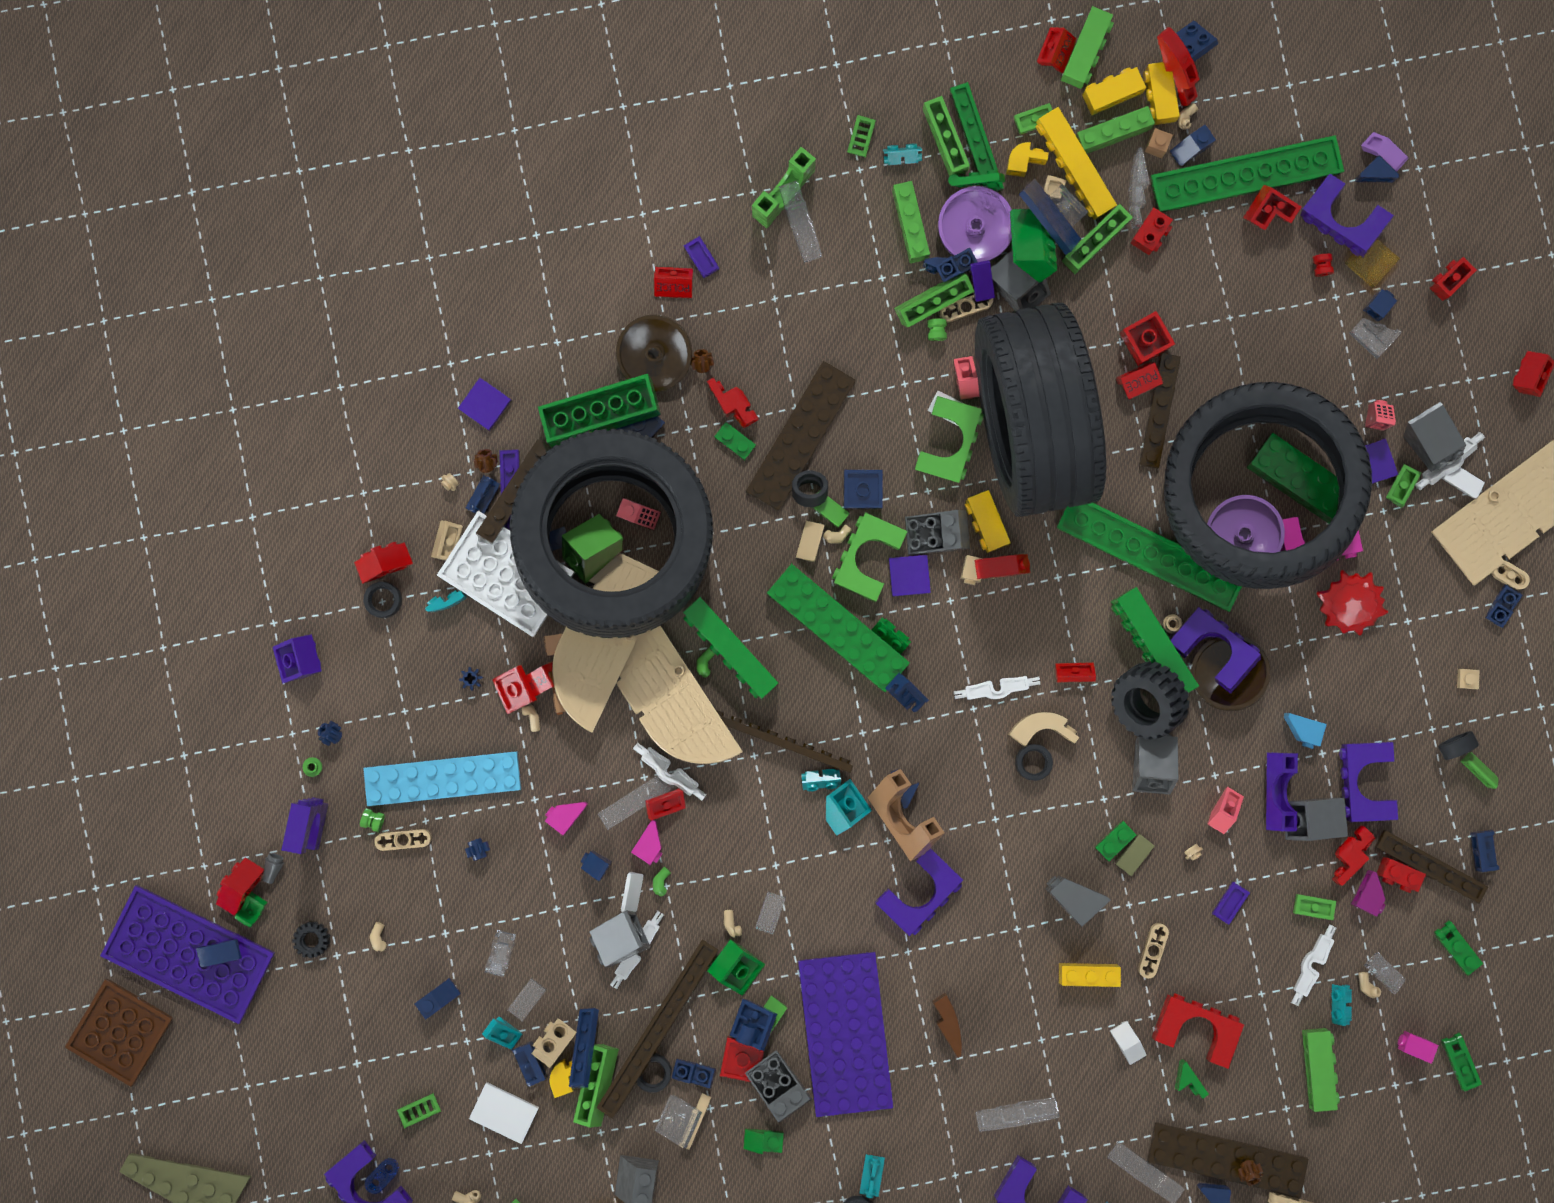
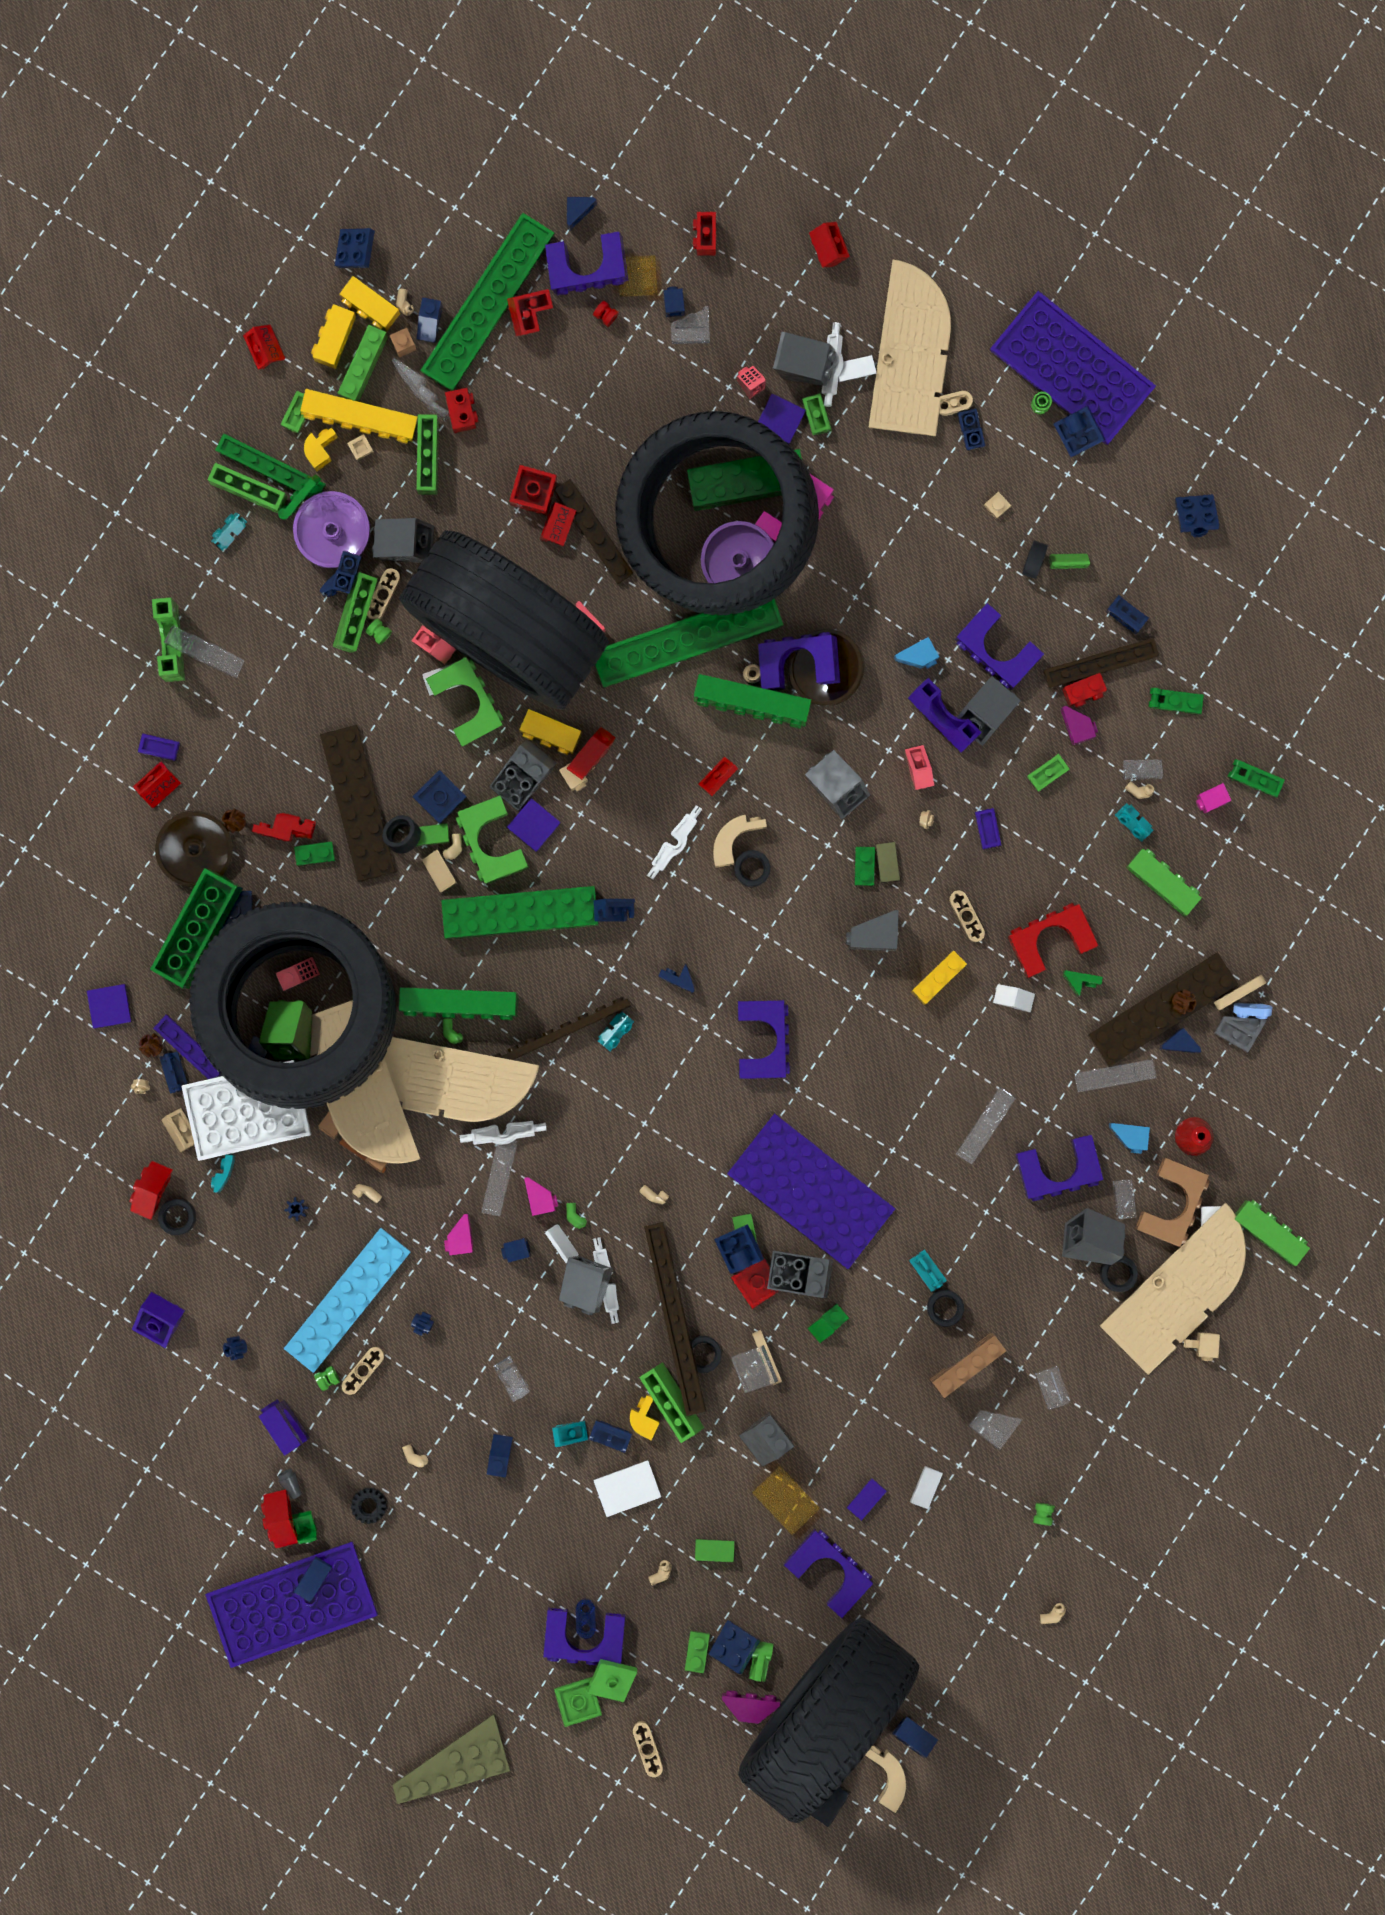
camera: 45 degrees left, 0 degrees up
(119, 1032) = (298, 1707): reddish brown plate -> none
(318, 767) = (251, 1380): bright green plate -> none
(406, 1123) = (561, 1564): bright green slope -> none
(502, 508) = (195, 1057): dark brown plate -> none
(514, 689) = (334, 1185): tile -> none
(526, 999) = (563, 1393): clear tile -> none
(540, 679) = (345, 1163): panel -> none
(555, 1043) = (612, 1402): tan brick -> none
(583, 1048) = (636, 1384): dark blue tile -> none
(665, 804) = (523, 1158): red plate -> none
(693, 1073) = (732, 1325): dark blue slope -> none
(736, 967) = (687, 1222): green slope -> none
(770, 912) = (673, 1160): clear tile -> none
(845, 807) = (651, 1033): teal slope -> none
(871, 122) = (173, 535): bright green slope -> none
(887, 803) = (675, 998): medium nougat arch -> none
(897, 640) = (555, 880): green hinge -> none
(910, 222) = (283, 573): bright green brick -> none
(949, 1023) = (875, 1110): reddish brown slope -> none
(982, 280) = (375, 565): dark purple tile -> none
(1032, 245) = (384, 503): green slope -> none
(1050, 216) = (378, 473): dark blue tile -> none
(1068, 205) = (381, 459): clear tile -> none
(1086, 48) = (283, 324): bright green brick -> none
(1165, 688) = (790, 725): black tyre -> none
(1179, 61) = (359, 271): red slope -> none
(1319, 955) = (1092, 823): white piece -> none
(1352, 603) = (863, 533): red piece -> none
(1352, 854) = (1036, 709): red plate -> none
(1383, 146) = (568, 187): medium lavender slope -> none

